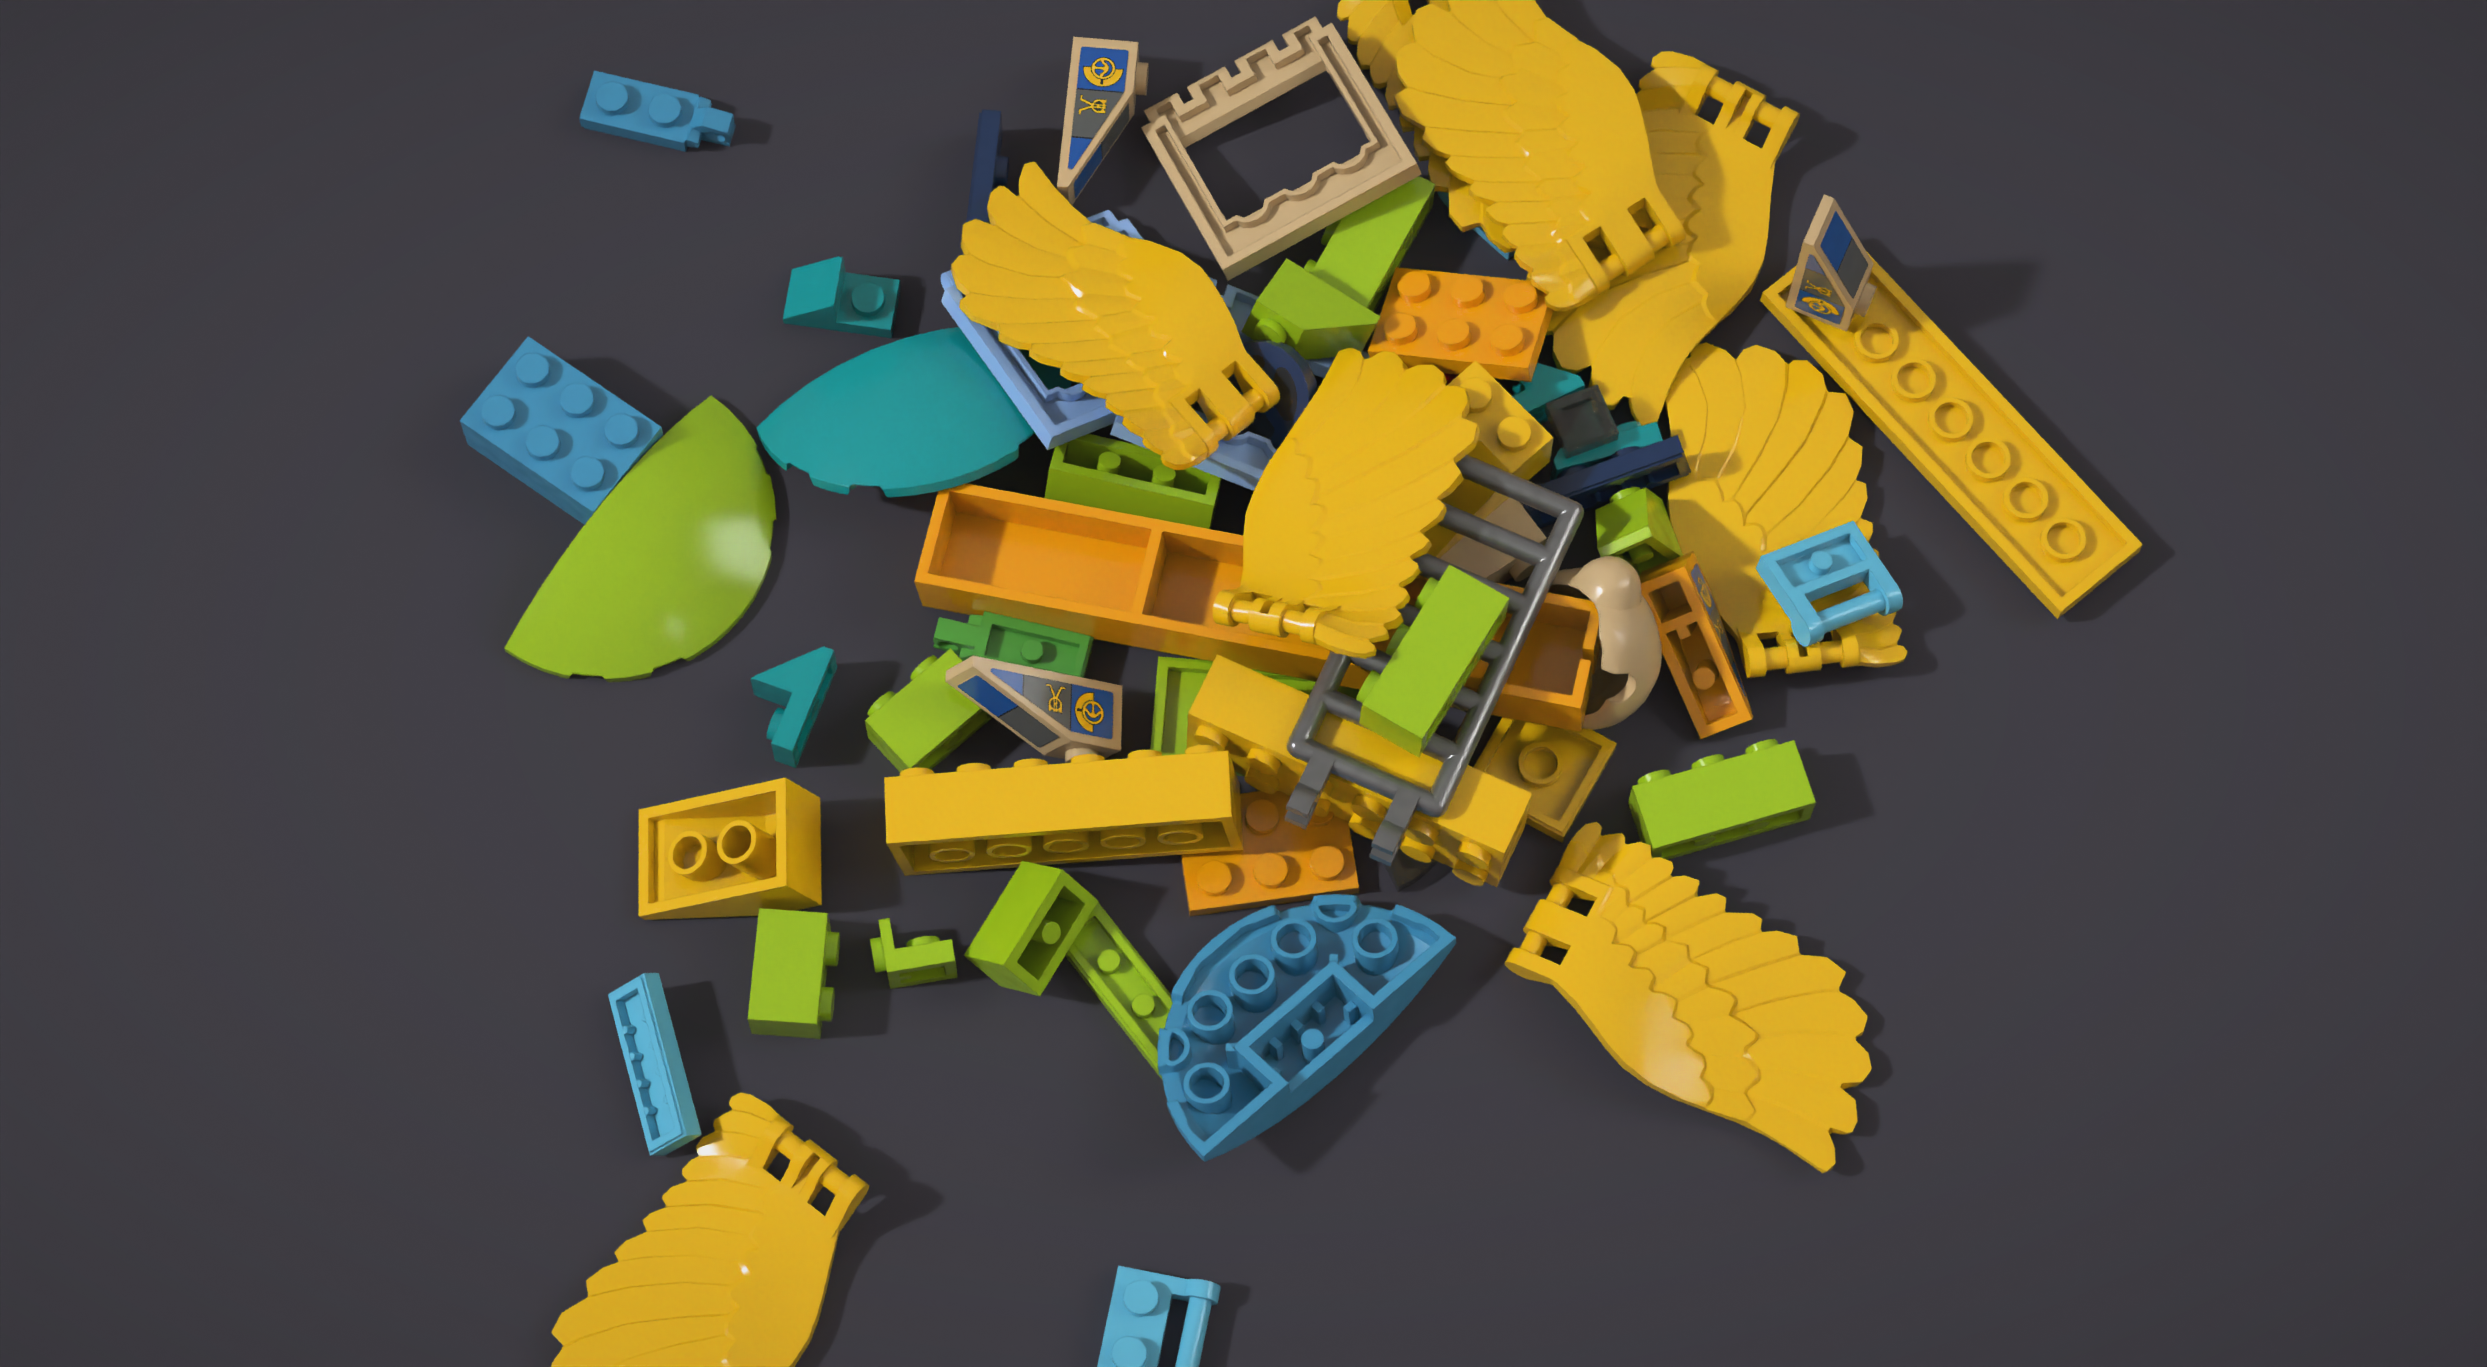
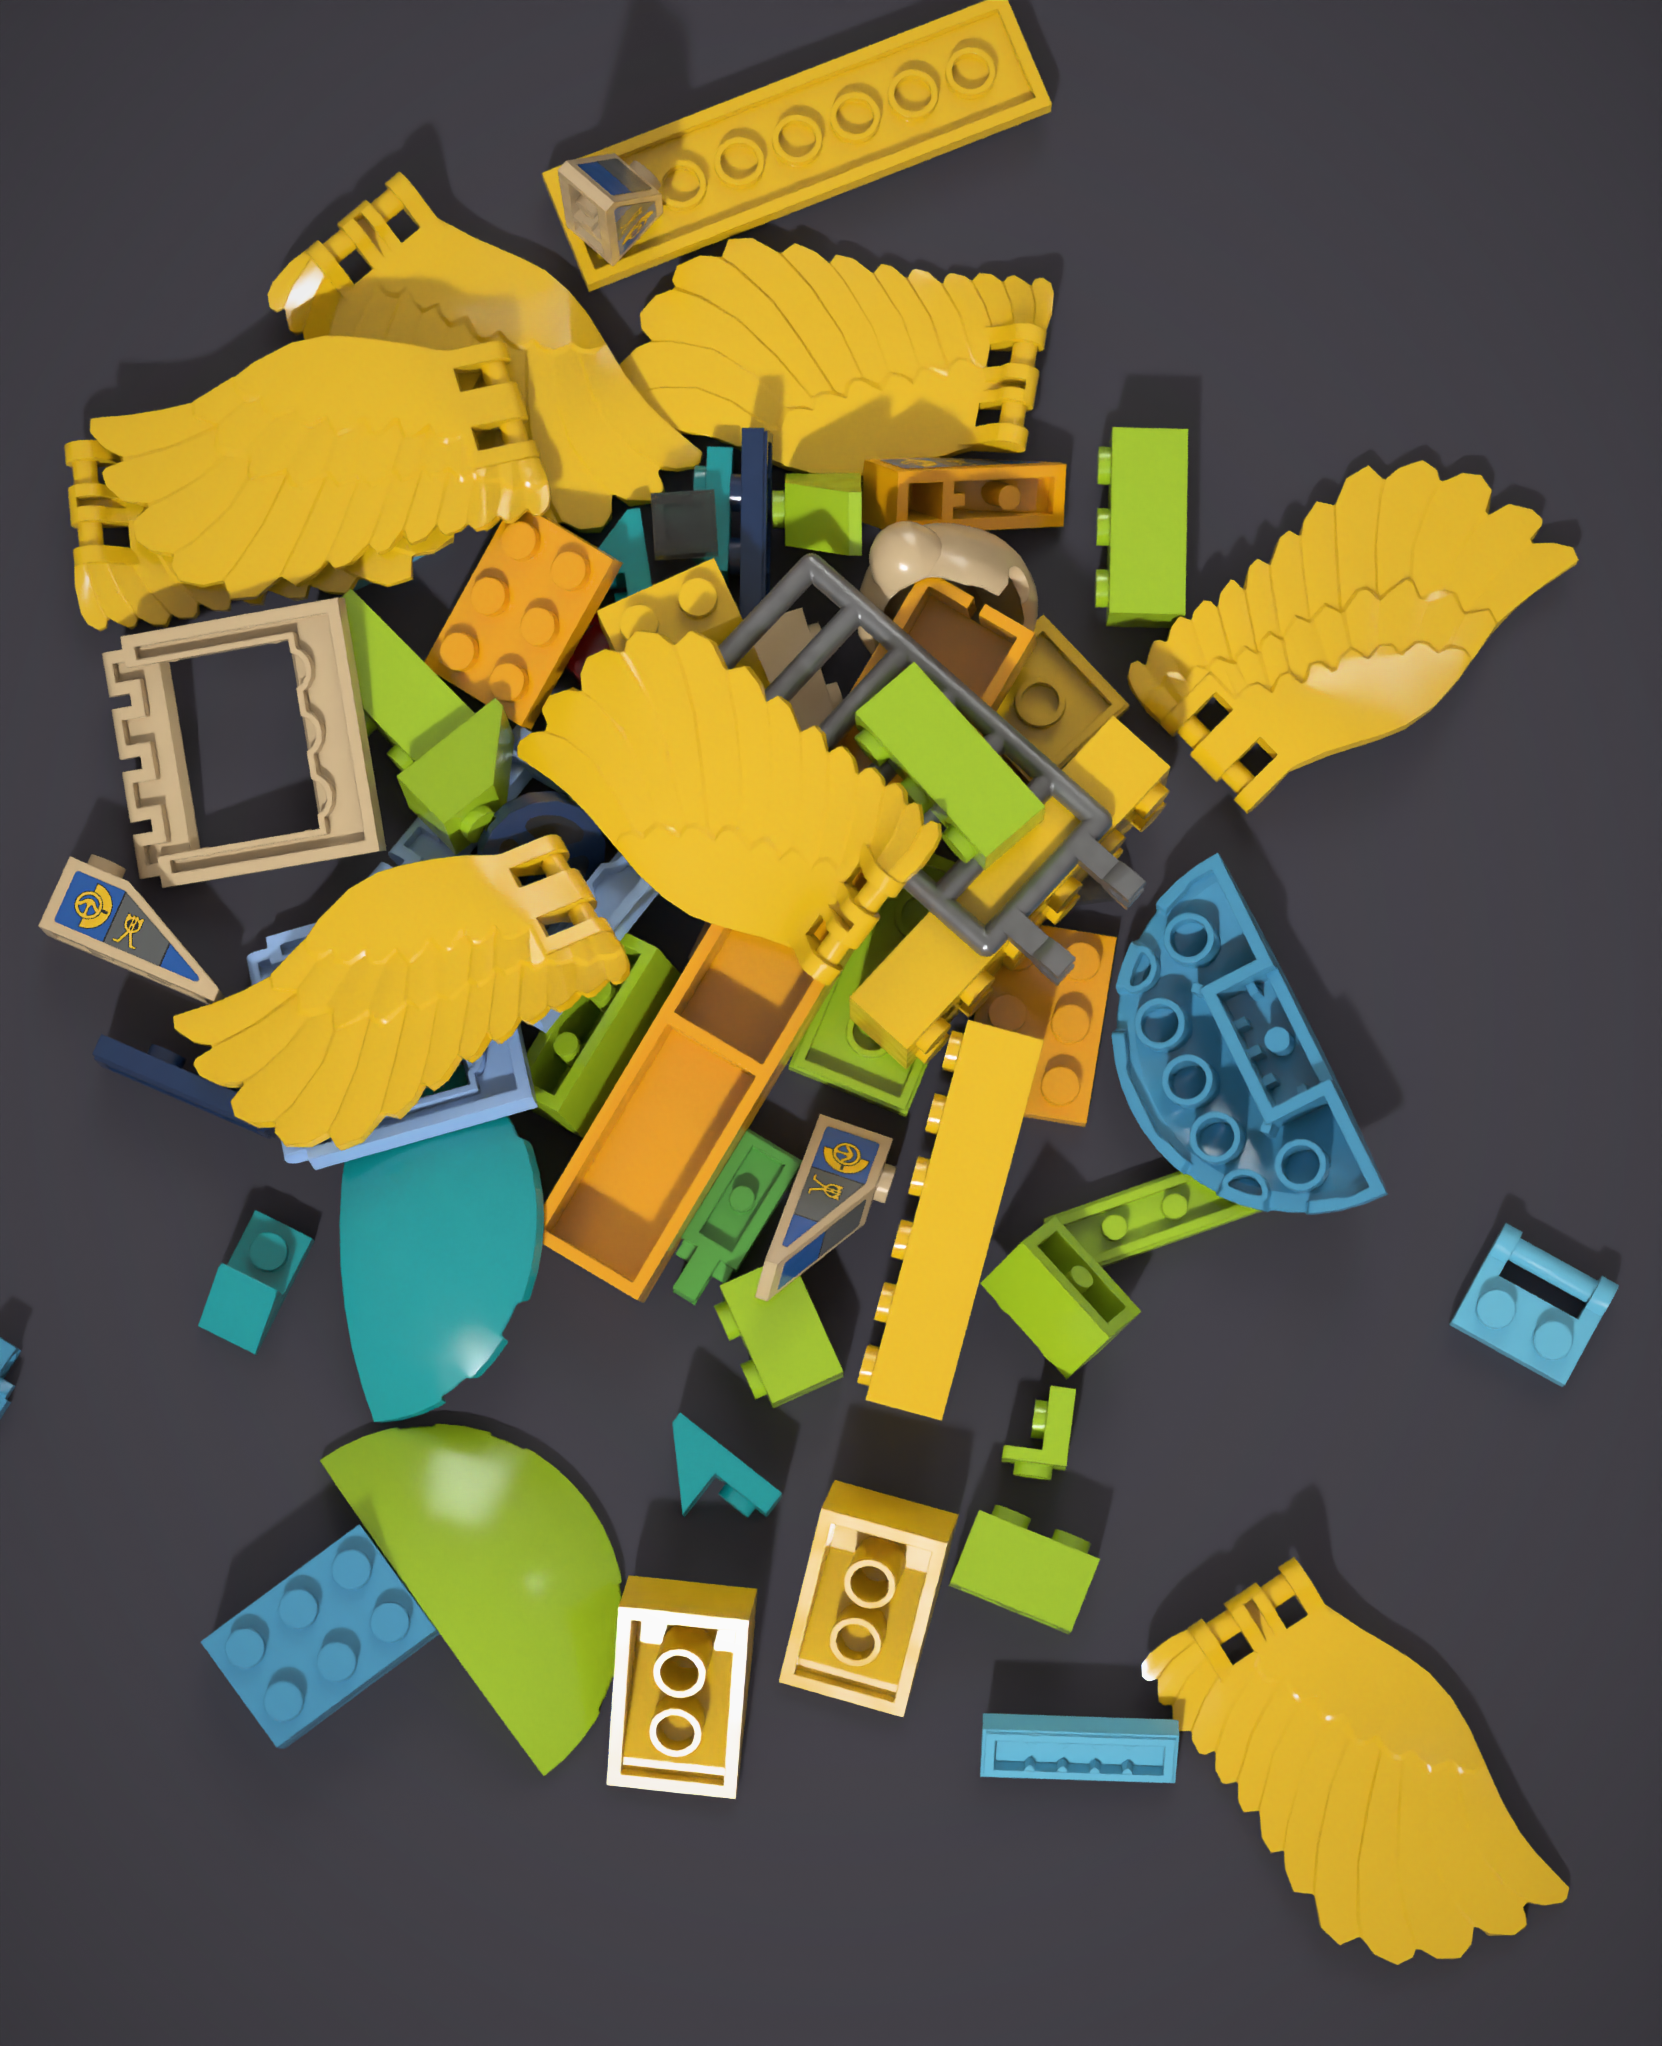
camera: 70 degrees left, 10 degrees up
(611, 727) = (681, 1686): none -> yellow slope
(1823, 567) = (931, 335): medium azure plate -> none

